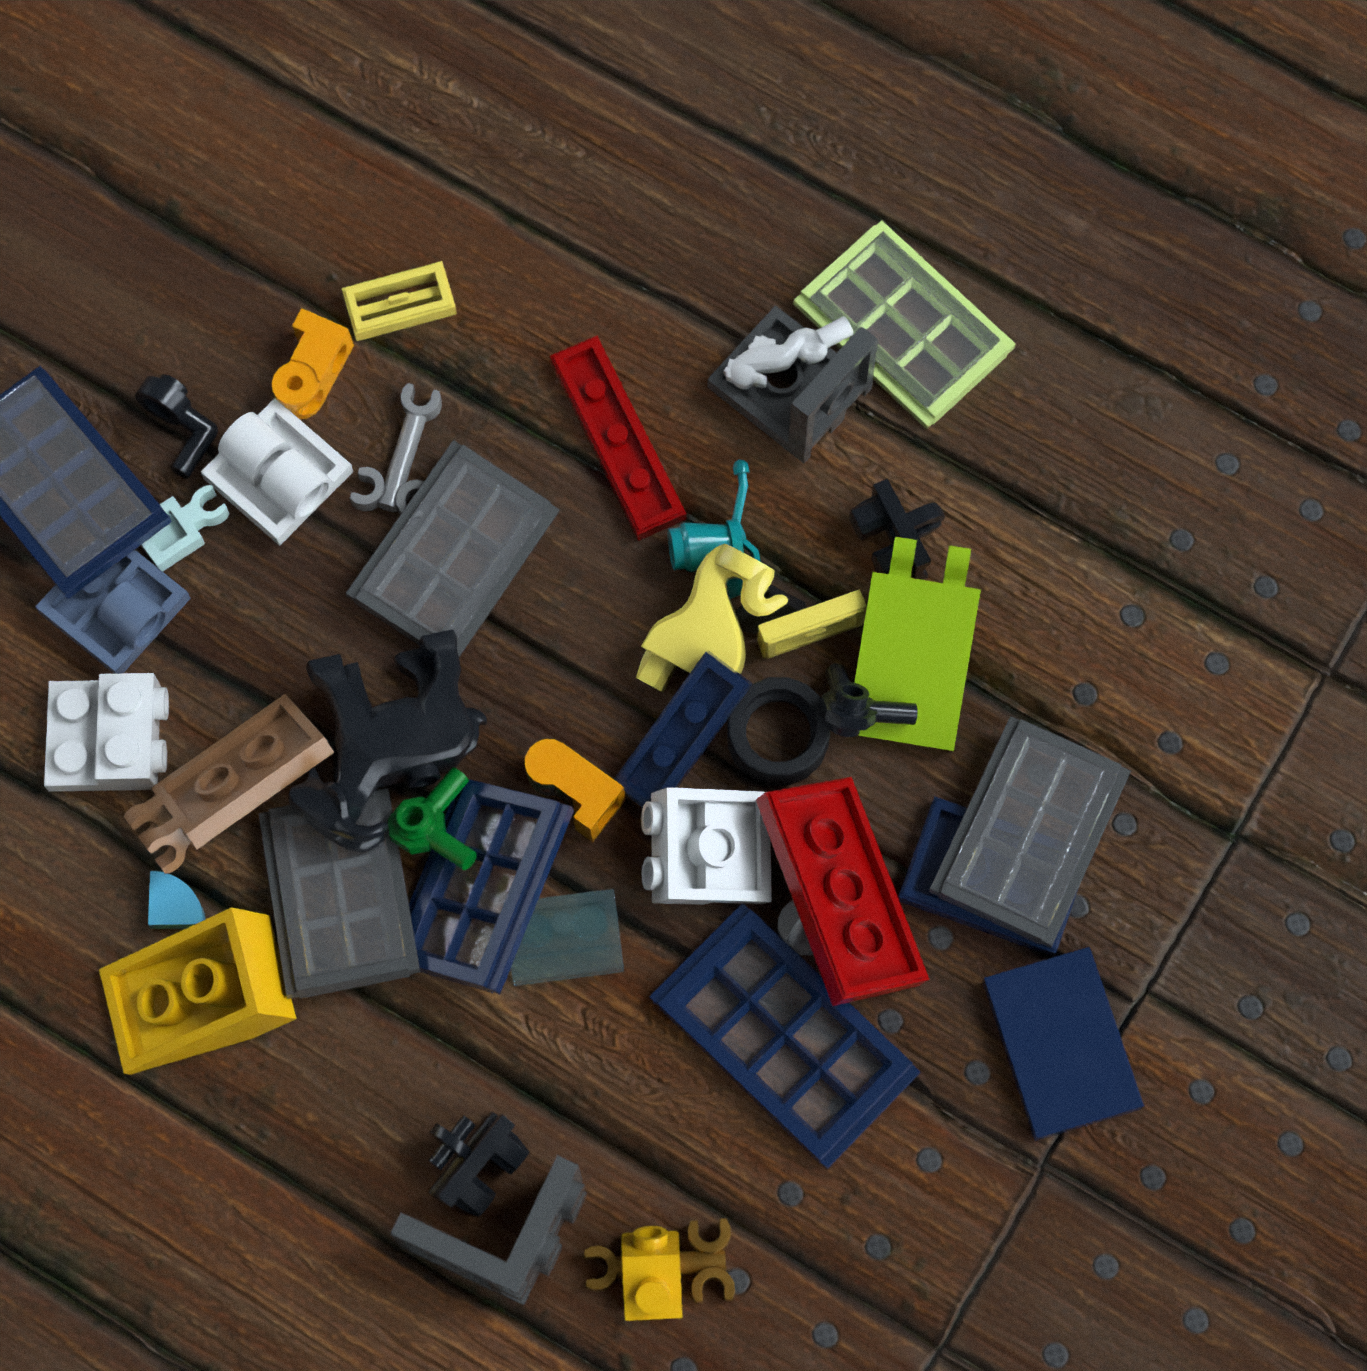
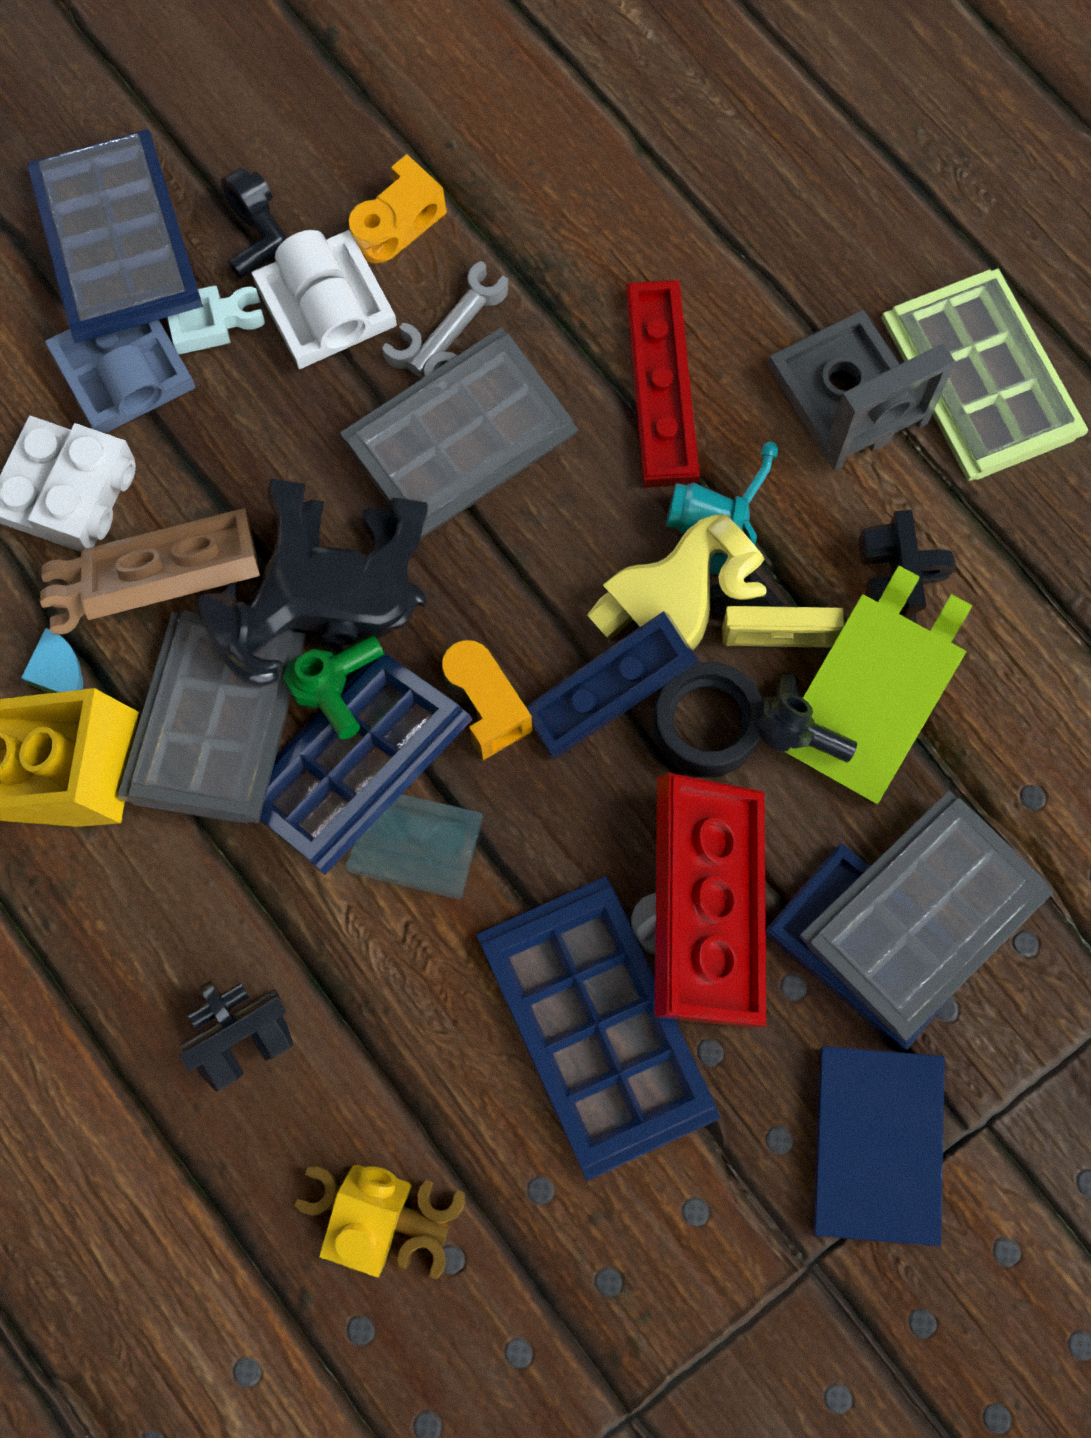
camera: 20 degrees right, 0 degrees up
(404, 318) = (503, 193): light yellow tile -> none
(533, 1252) = (250, 1149): dark grey bracket -> none
(706, 847) = (590, 807): white plate -> none
(768, 357) = (837, 354): white animal -> none

